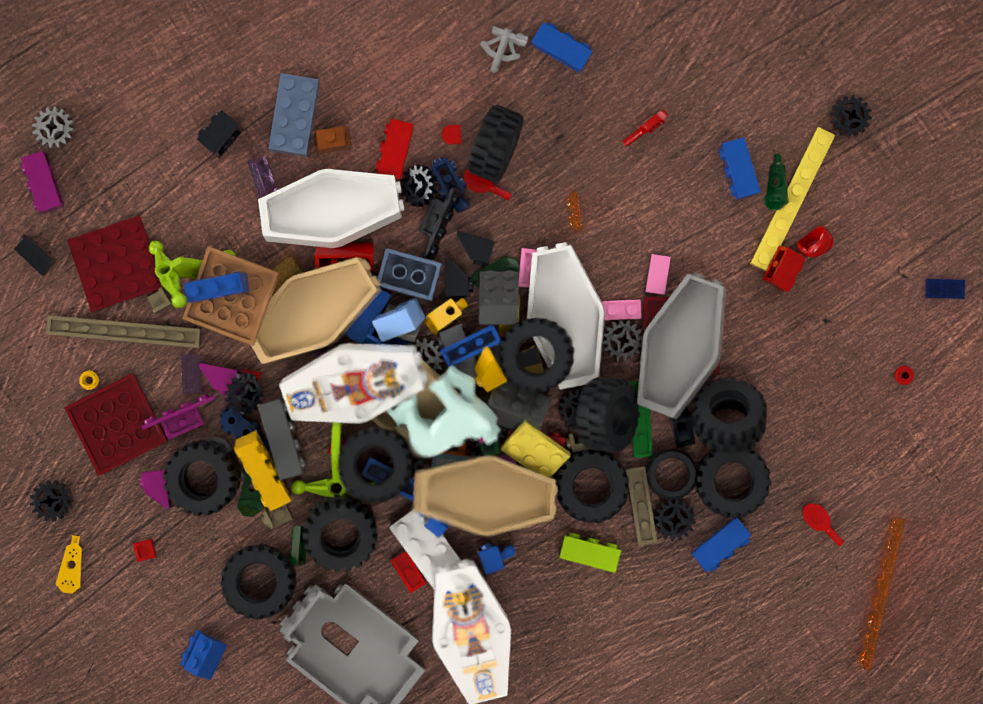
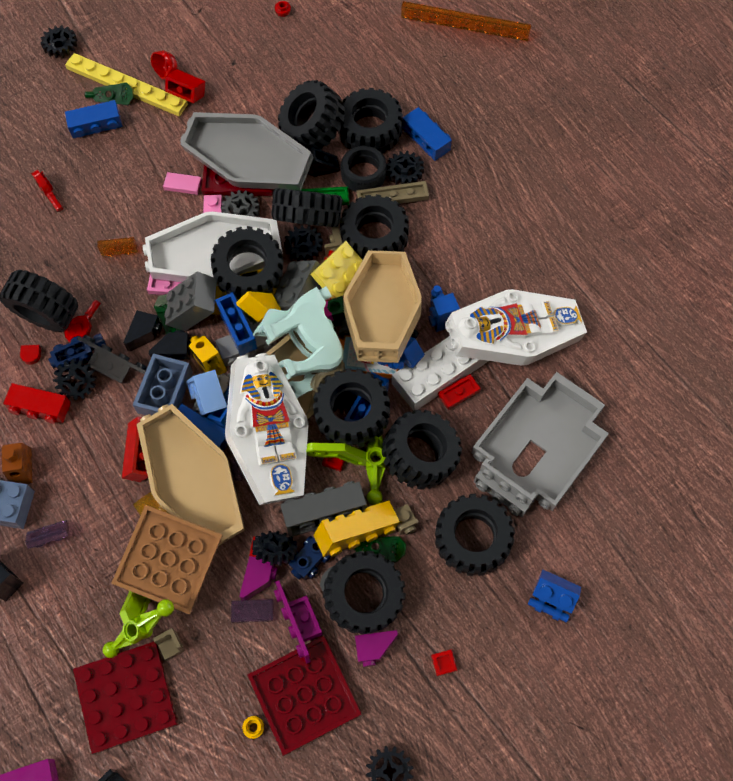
camera: 90 degrees left, 20 degrees down
(70, 574) = (472, 751): yellow piece -> none
(123, 331) = (200, 689): dark tan plate -> none
(216, 287) = (155, 568): blue brick -> none
(298, 552) = (425, 496): dark green plate -> none
(330, 208) = (86, 462): white container -> none
(590, 552) = (436, 234): lime brick -> none
(818, 519) = (404, 65): red piece -> none

